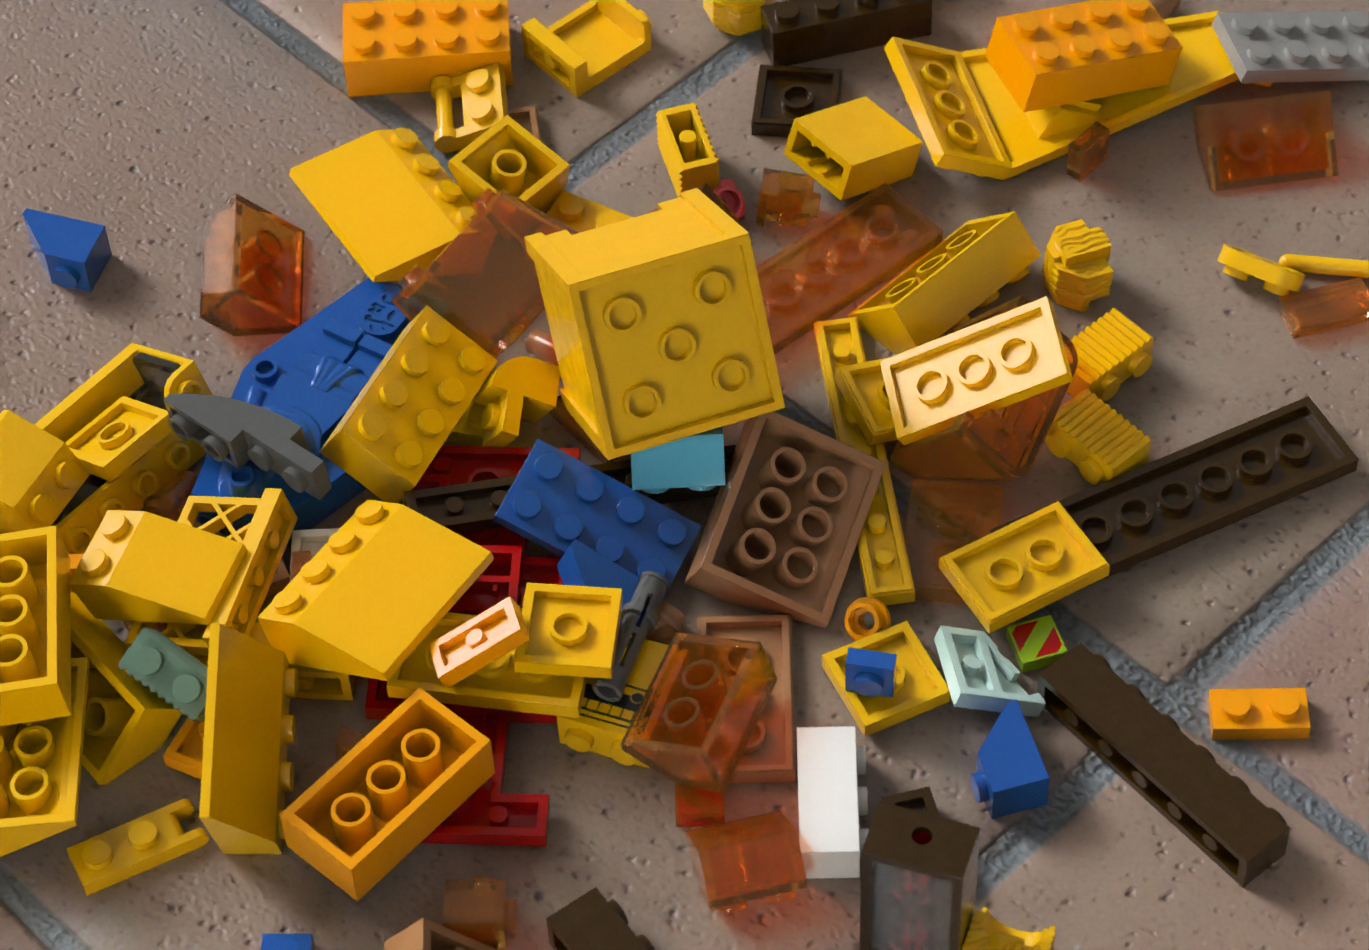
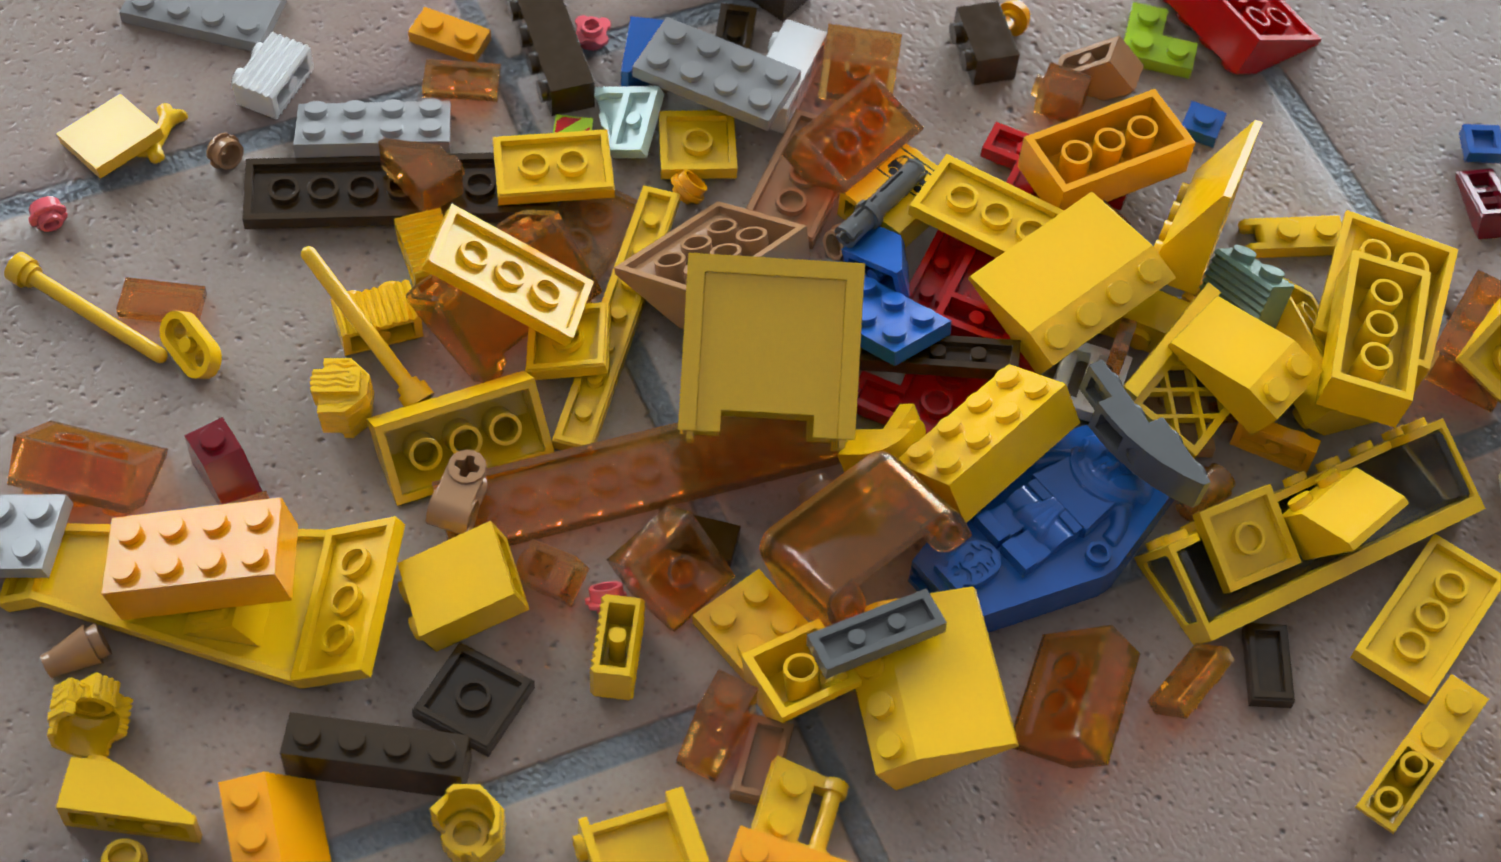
camera: 165 degrees left, 5 degrees up
(67, 365) = (1268, 665): none -> dark brown tile
(68, 248) = (1251, 798): blue slope -> none
(146, 316) = (1191, 680): none -> clear orange plate
(448, 187) = (876, 633): none -> dark grey plate
(478, 642) = (1009, 195): light orange plate -> none
(569, 630) = (934, 191): yellow plate -> none
(574, 142) = (717, 725): none -> clear orange slope
(870, 672) = (715, 121): blue plate -> none
(901, 729) = (716, 73): none -> light grey plate
(902, 209) = (459, 493): none -> medium nougat piece
(1095, 791) = (592, 32): none -> coral plate
(1108, 311) = (410, 388): none -> yellow piece
(1143, 179) = (221, 462): none -> dark red slope
(1155, 488) = (422, 171): none -> clear orange slope
(1200, 651) = (461, 80): none -> clear orange plate
(1252, 550) = (358, 126): none -> light grey plate

